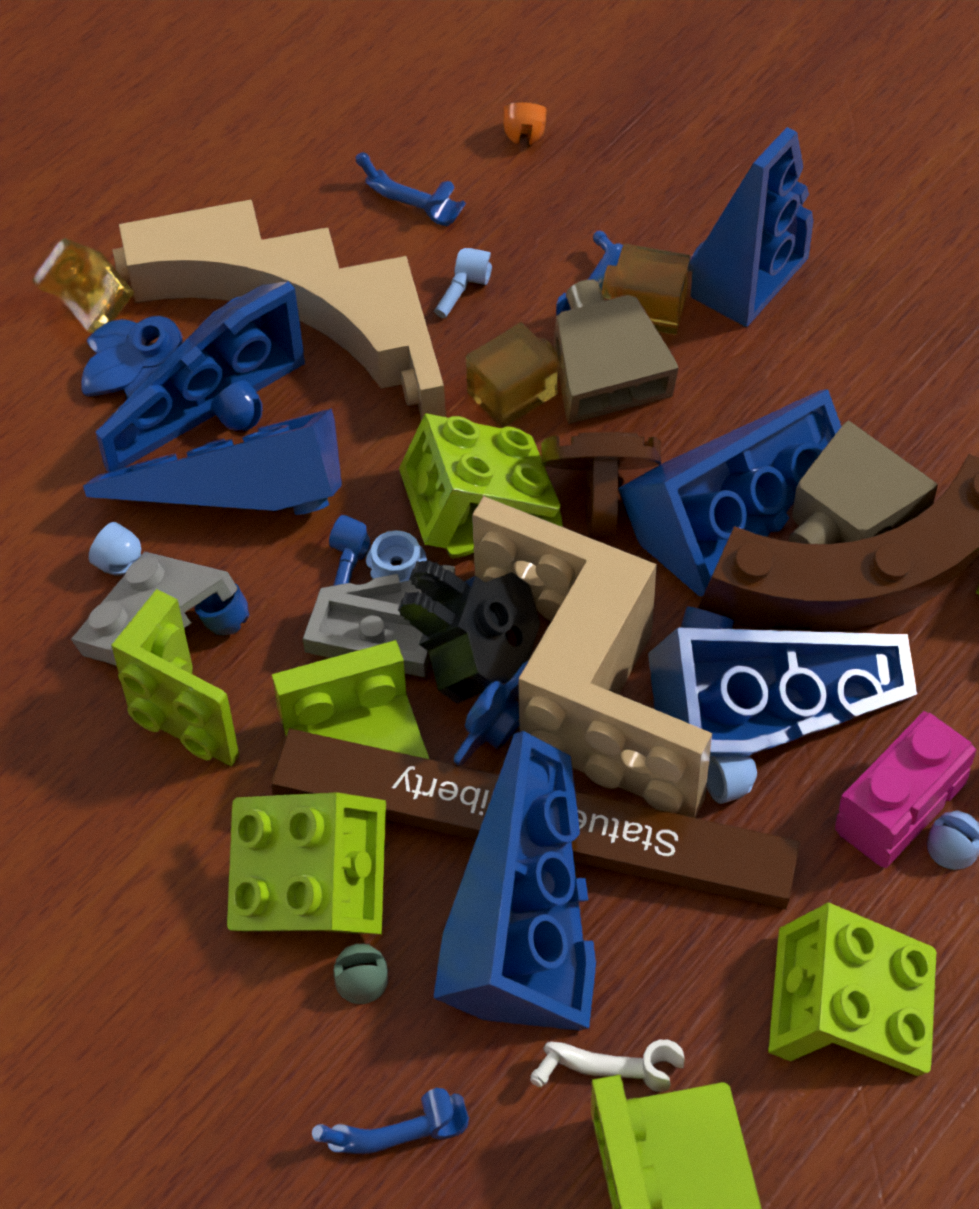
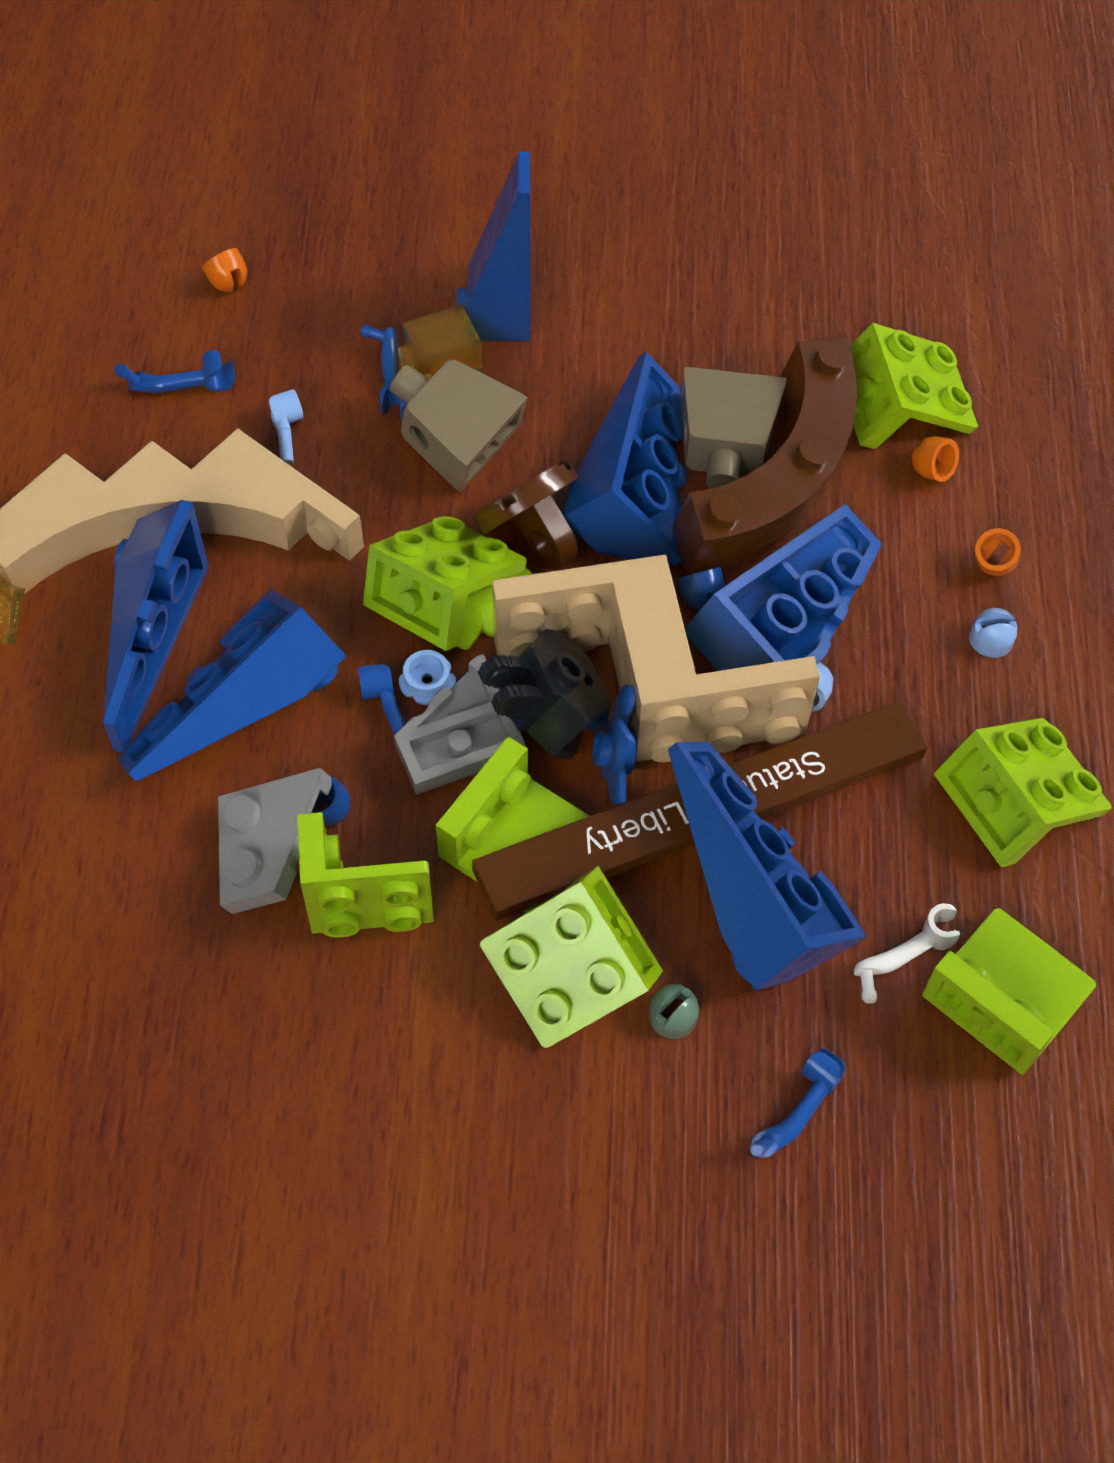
camera: 40 degrees left, 5 degrees up
(114, 549) = (195, 810): light blue hinge -> none
(124, 356) = (63, 653): blue plate -> none
(238, 406) = (194, 632): blue hinge -> none
(512, 374) = (394, 477): clear yellow brick -> none
(904, 789) = (941, 616): dark pink brick -> none

